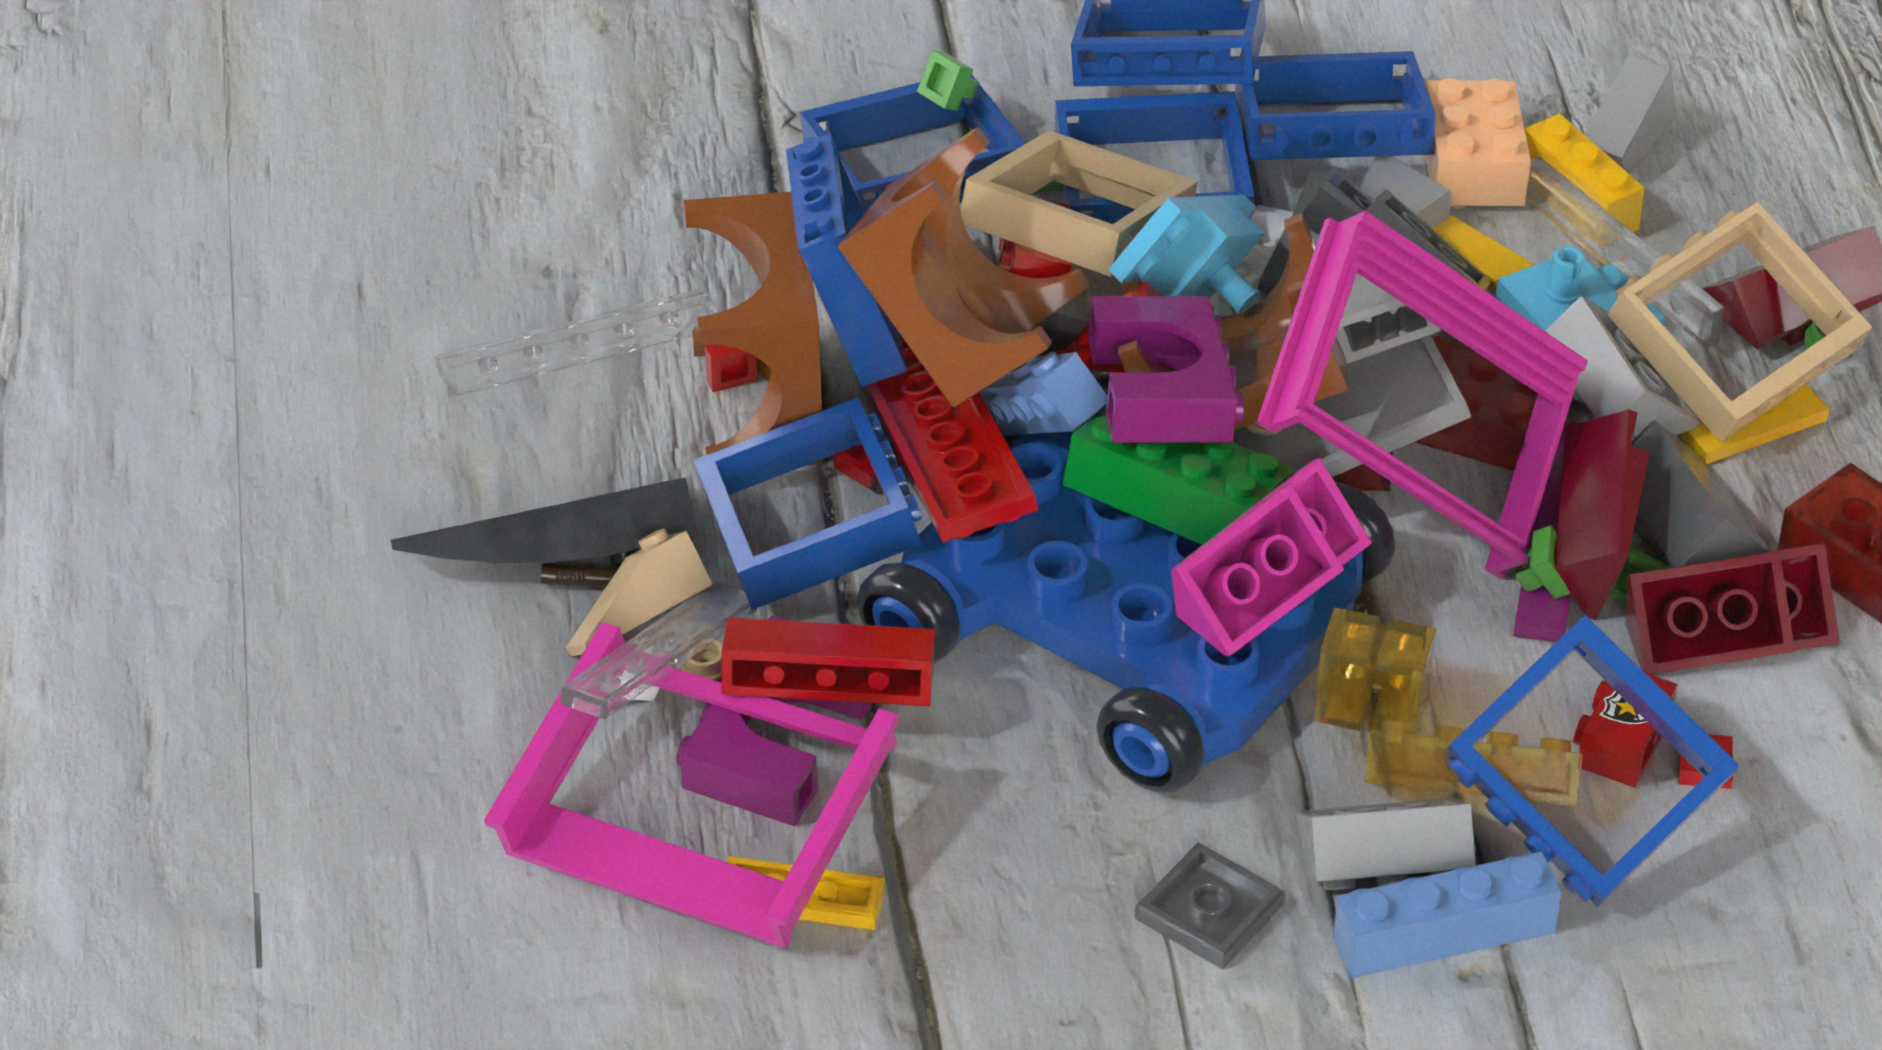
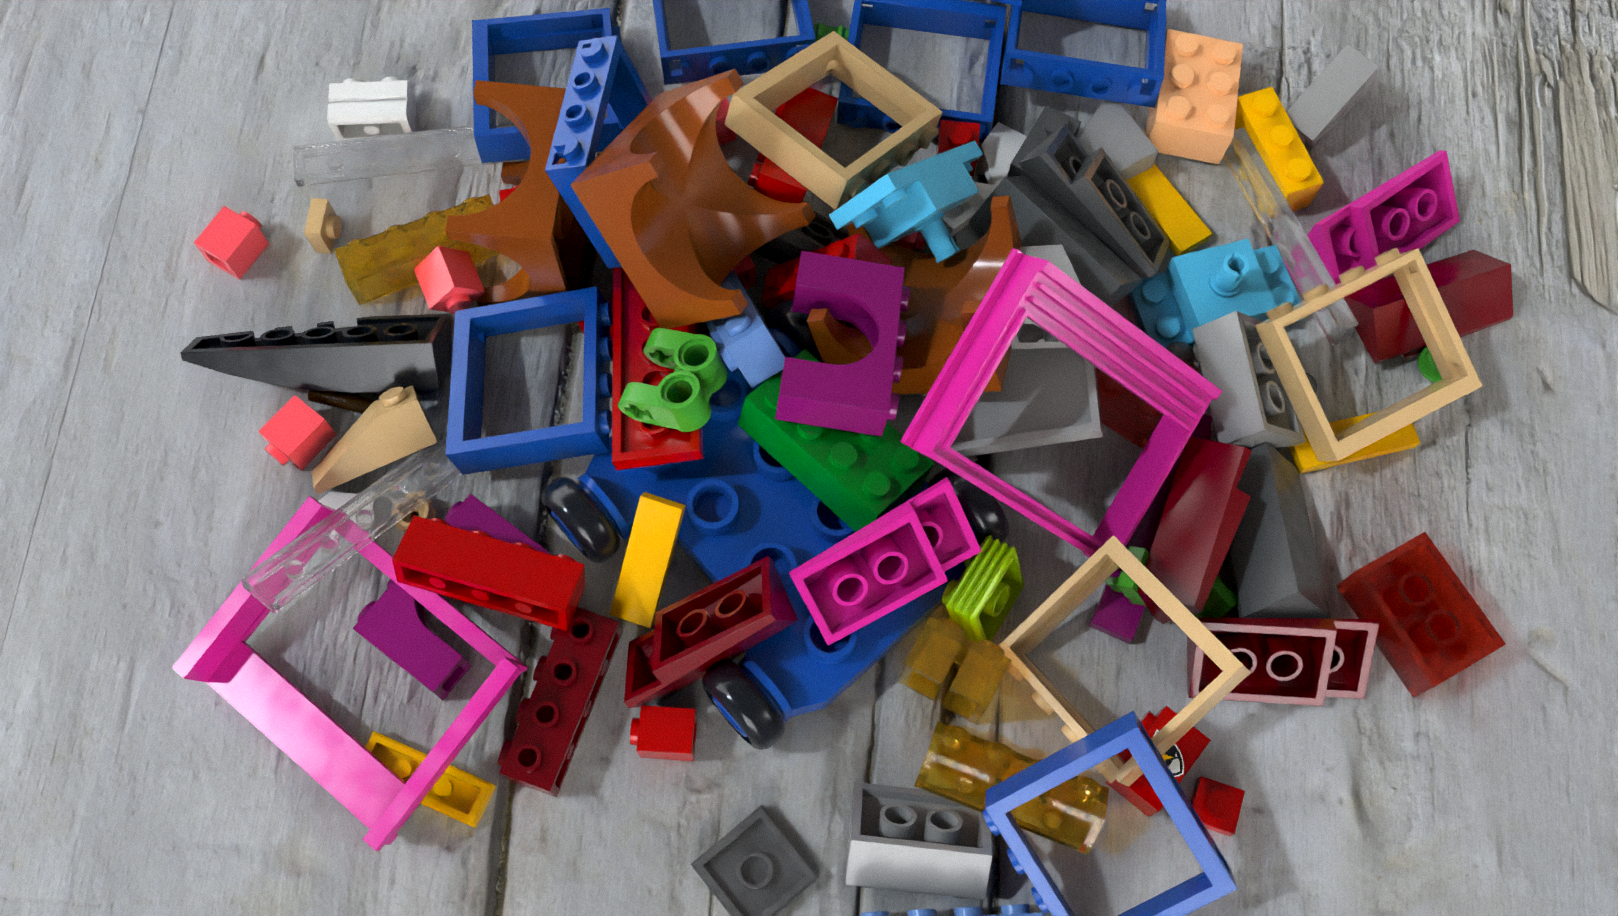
camera: 10 degrees right, 25 degrees up
(397, 451) = (232, 241): none -> coral brick
(502, 419) = (322, 226): none -> tan plate
(518, 302) = (371, 108): none -> white brick
(542, 607) = (296, 434): none -> coral brick
(629, 419) = (388, 259): none -> clear yellow brick
(662, 213) = (530, 34): none -> blue window
(671, 439) = (449, 280): none -> coral brick
(937, 790) = (560, 702): none -> dark red brick
(991, 447) = (695, 377): none -> bright green piece
(996, 638) = (647, 559): none -> yellow tile
(1067, 796) = (665, 733): none -> red brick
(1072, 686) = (704, 630): none -> dark red slope
(1387, 582) = (985, 590): none -> lime brick
(1586, 547) = (1065, 601): none -> tan window
(1750, 177) = (1398, 214): none -> dark pink slope

